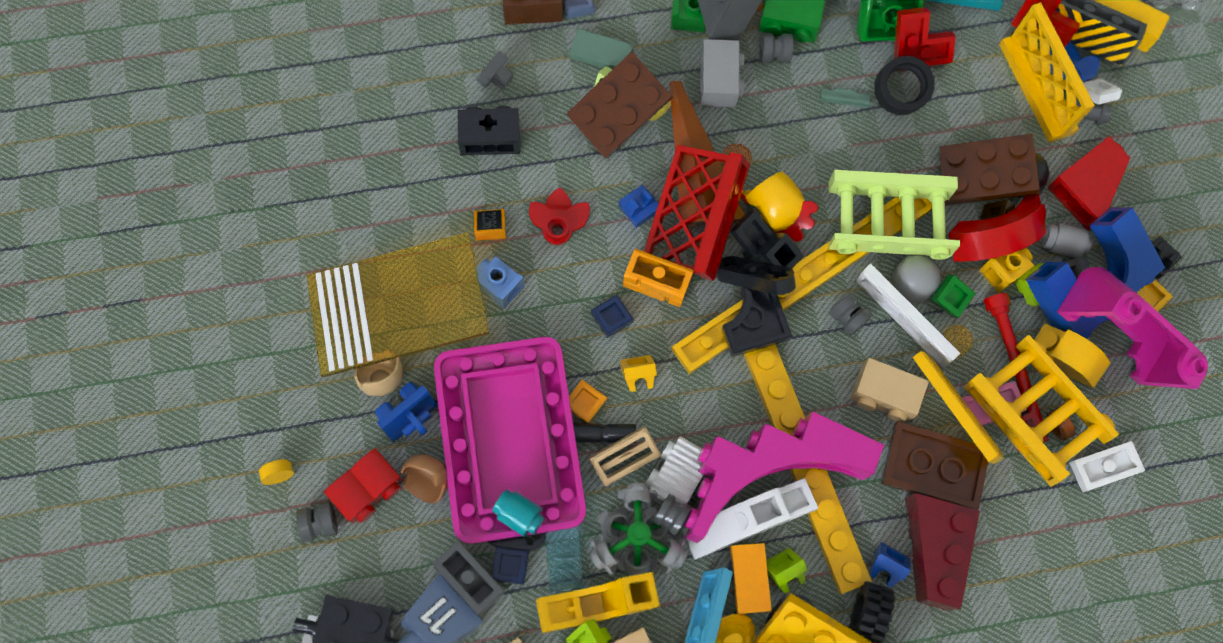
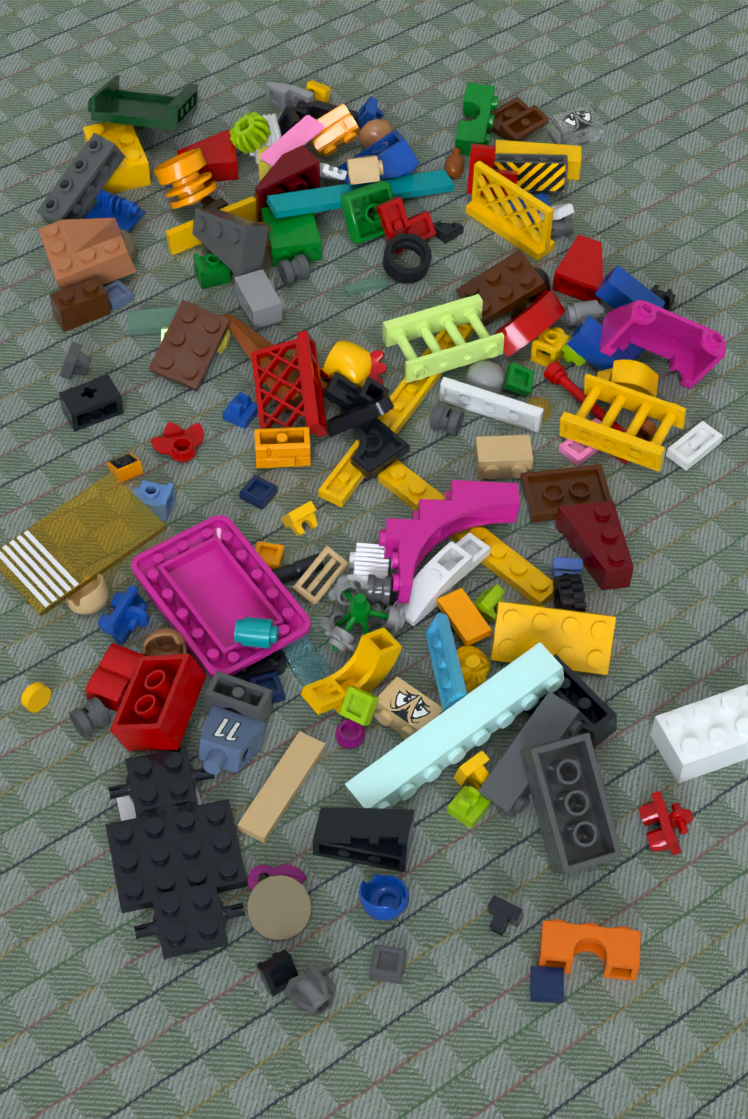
camera: 20 degrees left, 20 degrees down
(385, 547) = (158, 702): none -> red brick
(959, 407) = (562, 444): yellow tile -> none
(966, 62) = (447, 232): none -> black tile

